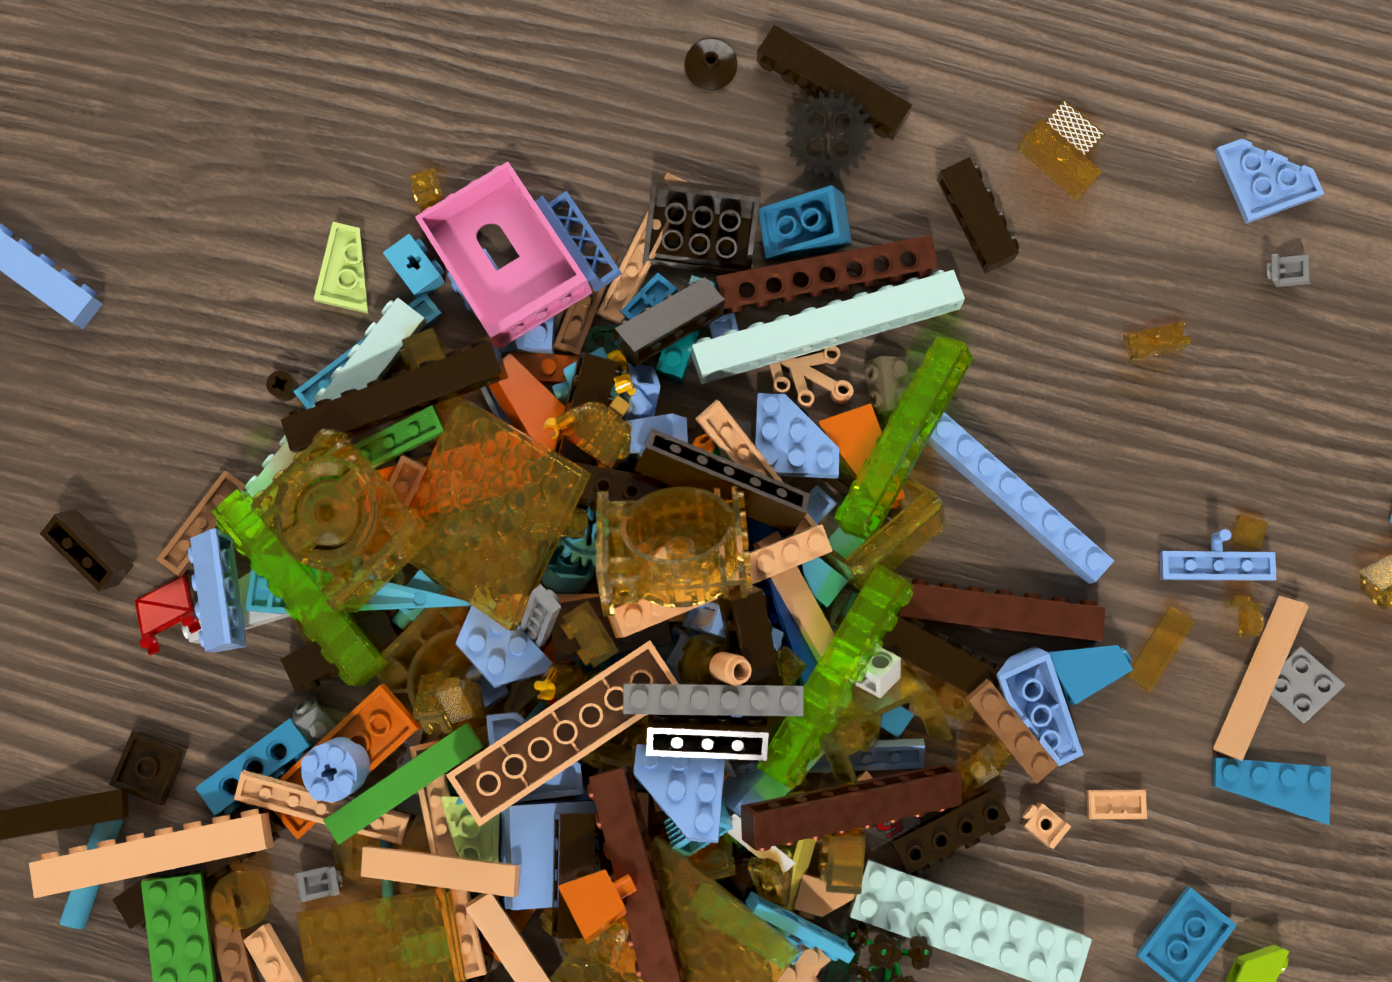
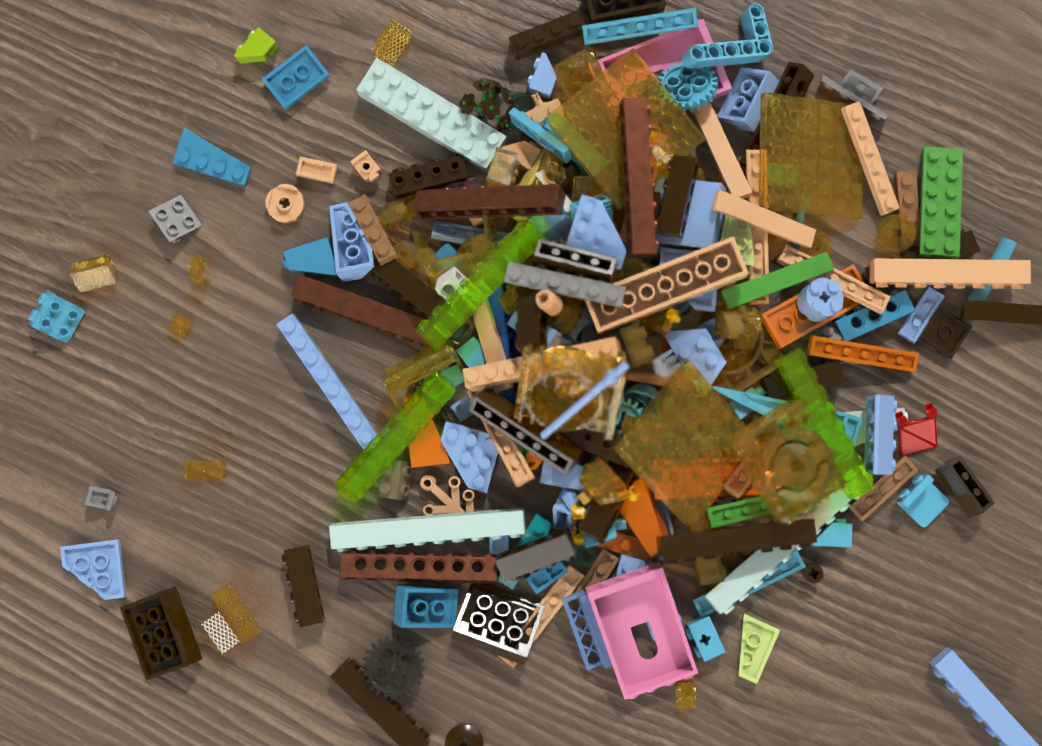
camera: 170 degrees left, 5 degrees up
(143, 519) = (922, 500): none -> medium azure bracket
(183, 794) = (920, 317): none -> light blue tile
(257, 443) = (835, 534): none -> medium azure slope
(262, 707) = (862, 353): none -> orange plate
(318, 883) = (844, 233): light grey bracket -> none
(596, 901) = (667, 173): orange torso -> none
(618, 563) = (609, 379): none -> light blue bar
(1152, 113) = (161, 633): none -> dark brown slope
(1160, 648) = (260, 262): clear yellow tile -> none
(1160, 731) = (291, 212): none -> light nougat plate
(1216, 564) = (207, 309): light blue plate -> none
(1260, 678) = (200, 229): light nougat tile -> none

